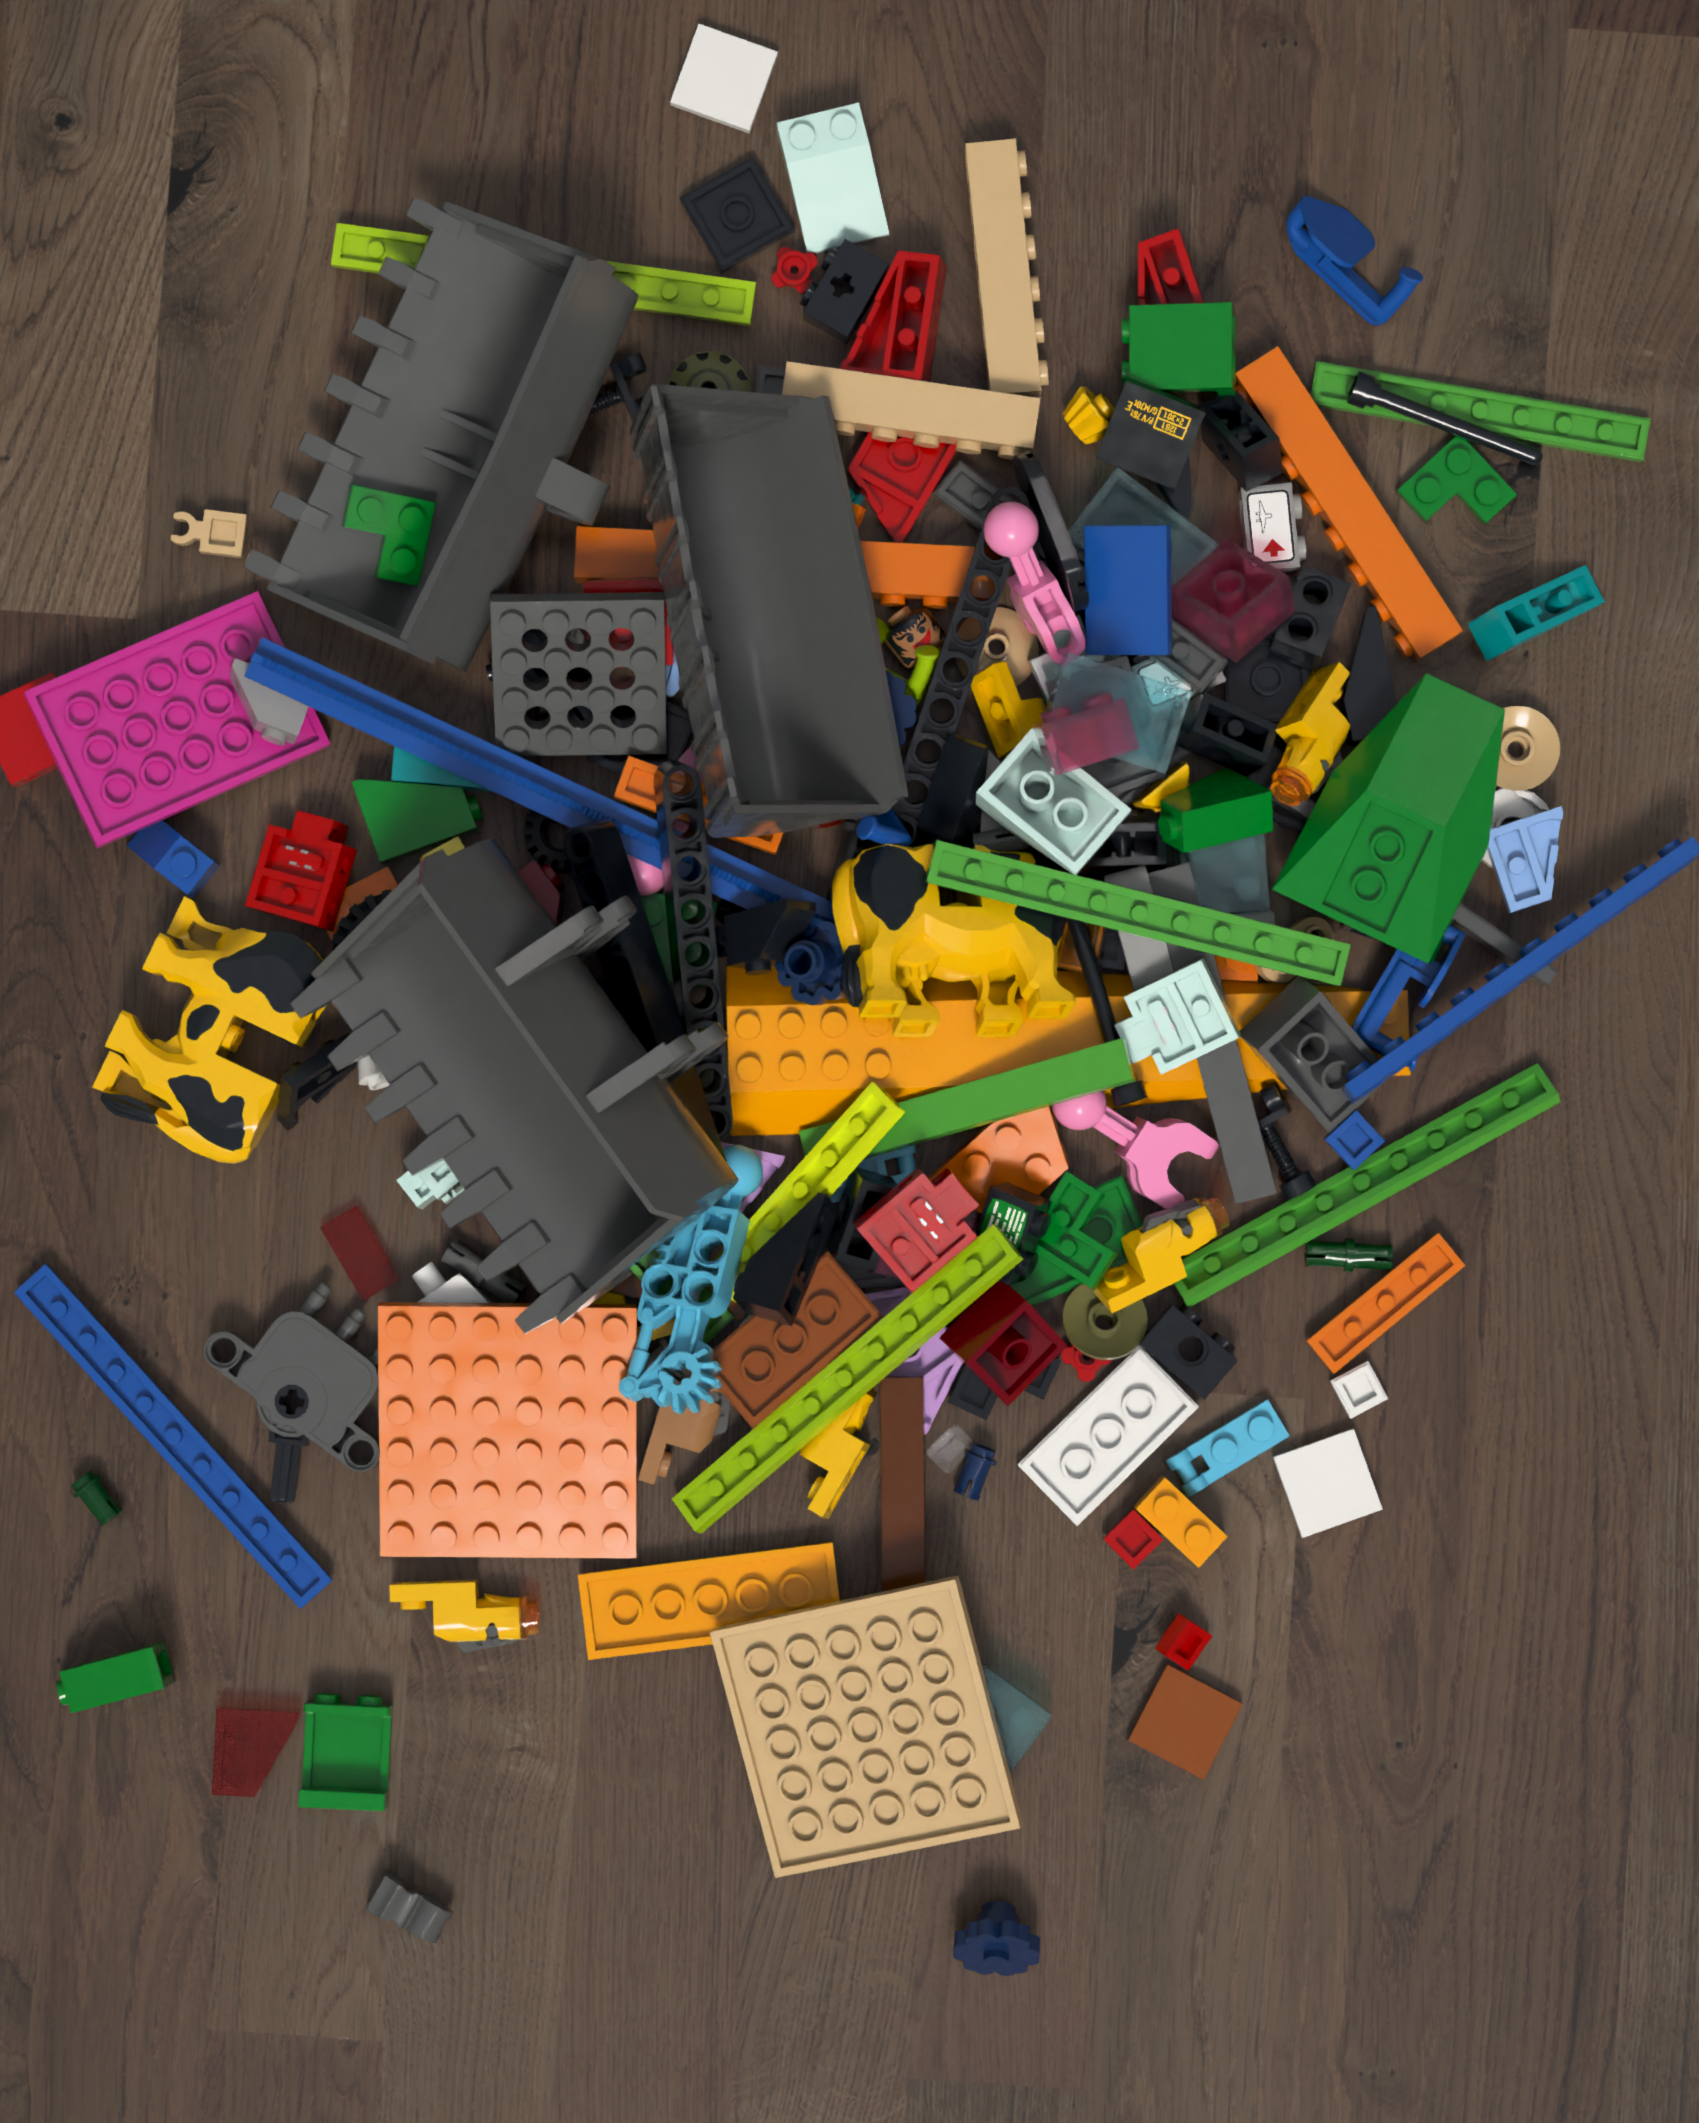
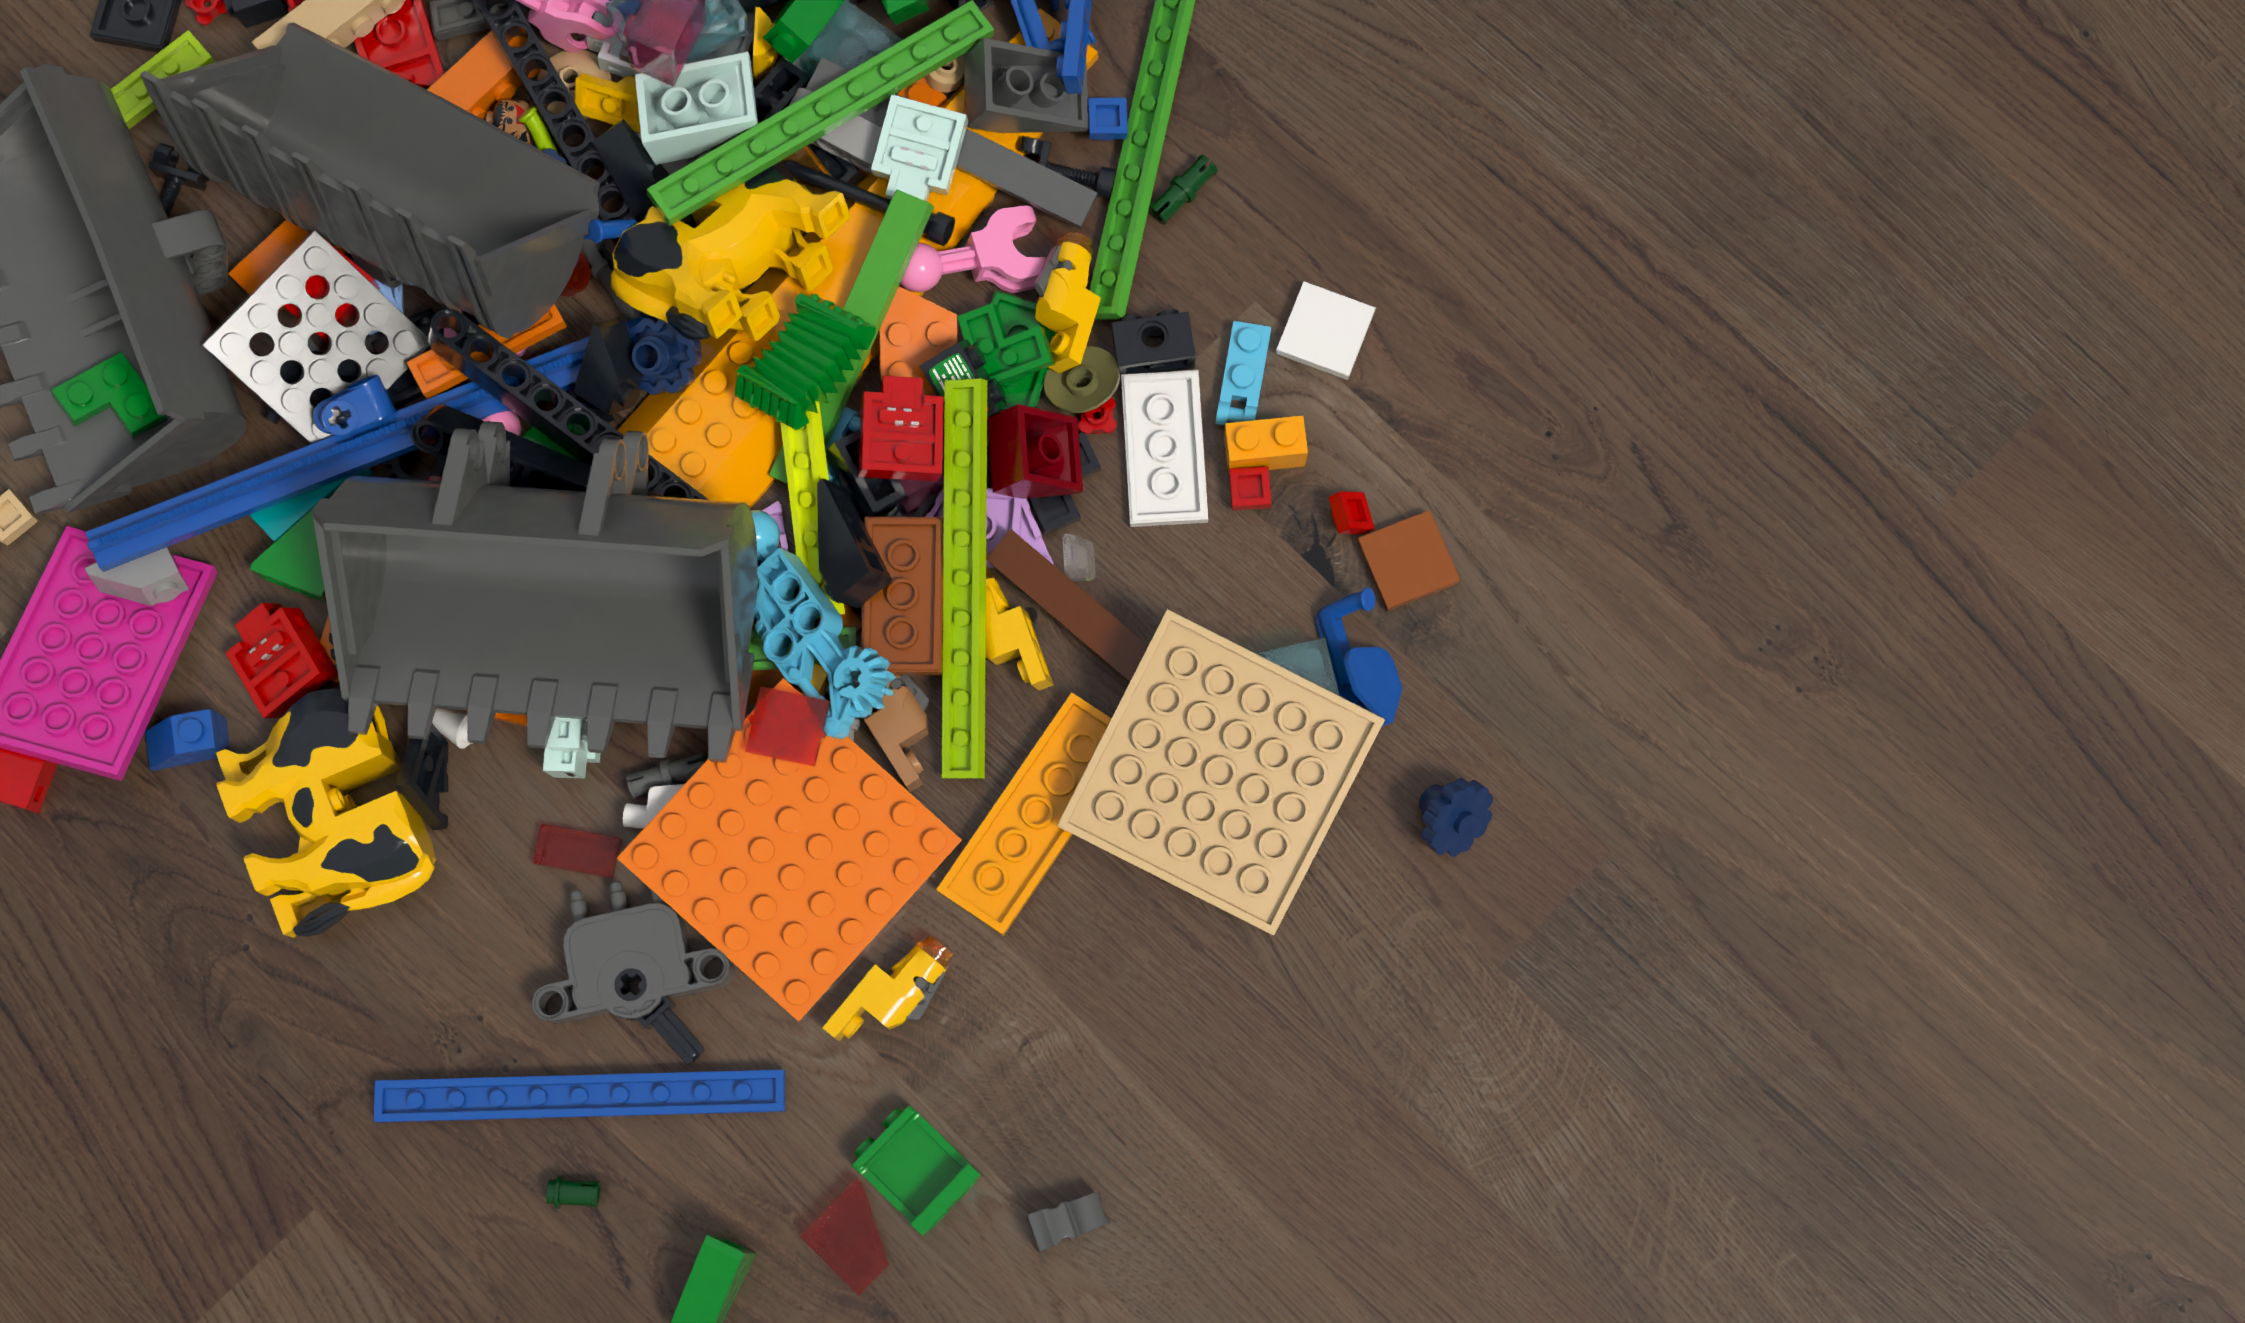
camera: 45 degrees left, 10 degrees down
(553, 755) = (359, 403): none -> blue piece
(598, 1351) = (787, 726): none -> clear red piece
(911, 1092) = (804, 361): none -> green piece
(976, 1469) = (1107, 552): dark blue pin -> none
(1049, 1774) = (1363, 673): none -> blue piece
(1358, 1389) = (1280, 259): white tile -> none
(1385, 1303) = (1236, 192): orange plate -> none

